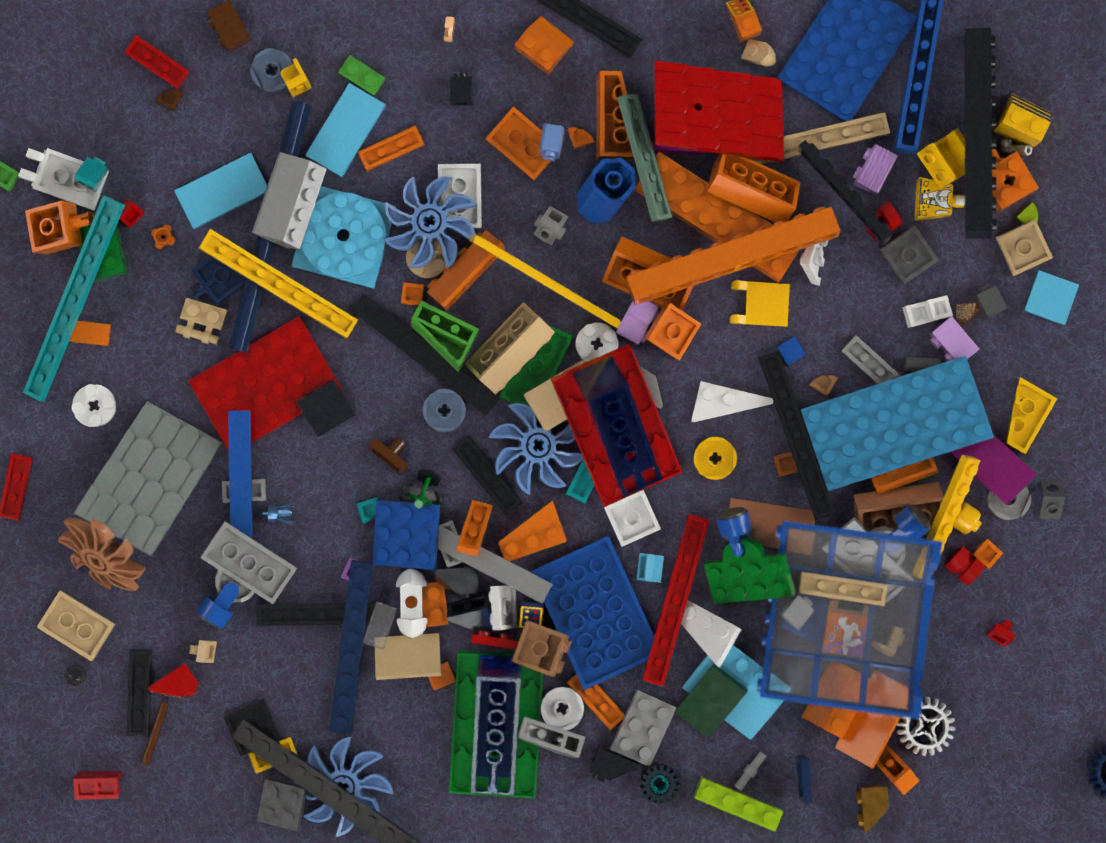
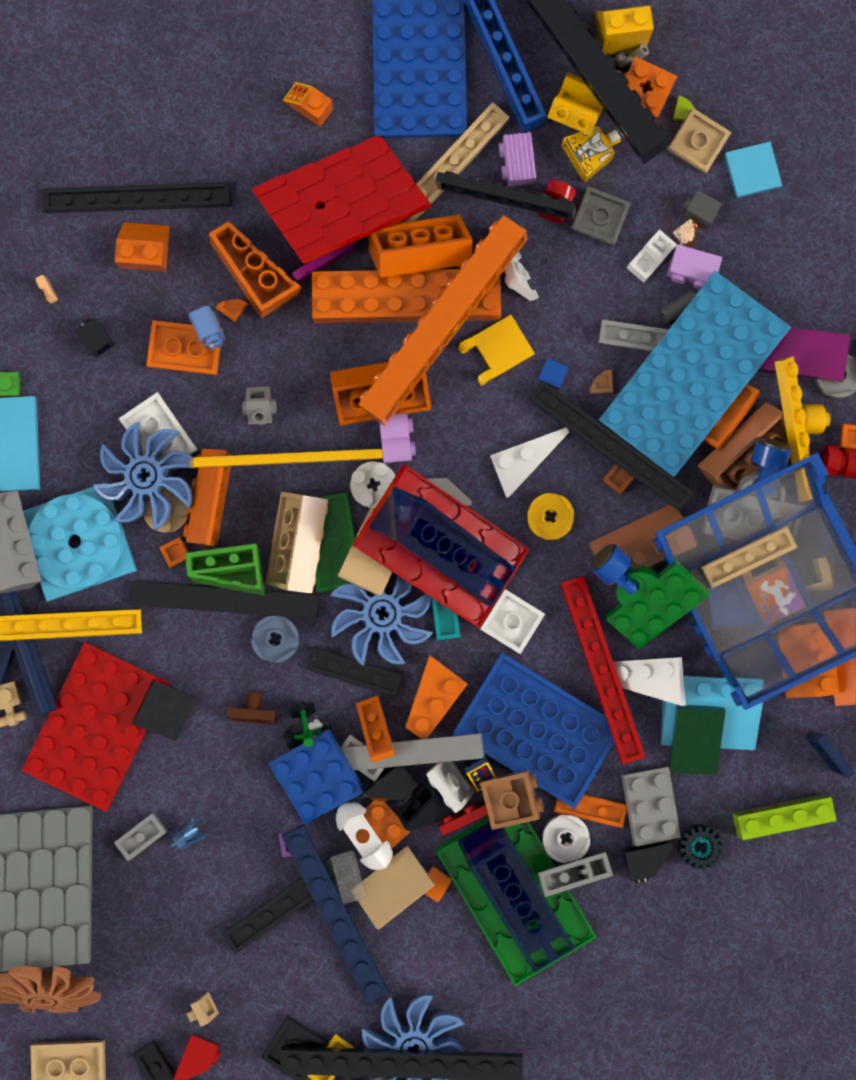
camera: 35 degrees left, 0 degrees up
(240, 470) = (140, 844): blue tile -> none
(242, 570) = (187, 912): light grey plate -> none
(367, 509) = (265, 777): teal tile -> none
(391, 148) = (66, 433): orange tile -> none
(606, 190) = (287, 339): blue brick -> none
(644, 157) = (302, 284): sand green plate -> none
(650, 567) = (559, 655): medium azure piece -> none
(672, 330) = (434, 426): orange plate -> none
(750, 771) = (774, 778): light grey bar -> none
(759, 53) = (343, 124): tan plate -> none
(797, 611) = (723, 606): light grey slope -> none
(1028, 415) = (804, 287): yellow wing -> none

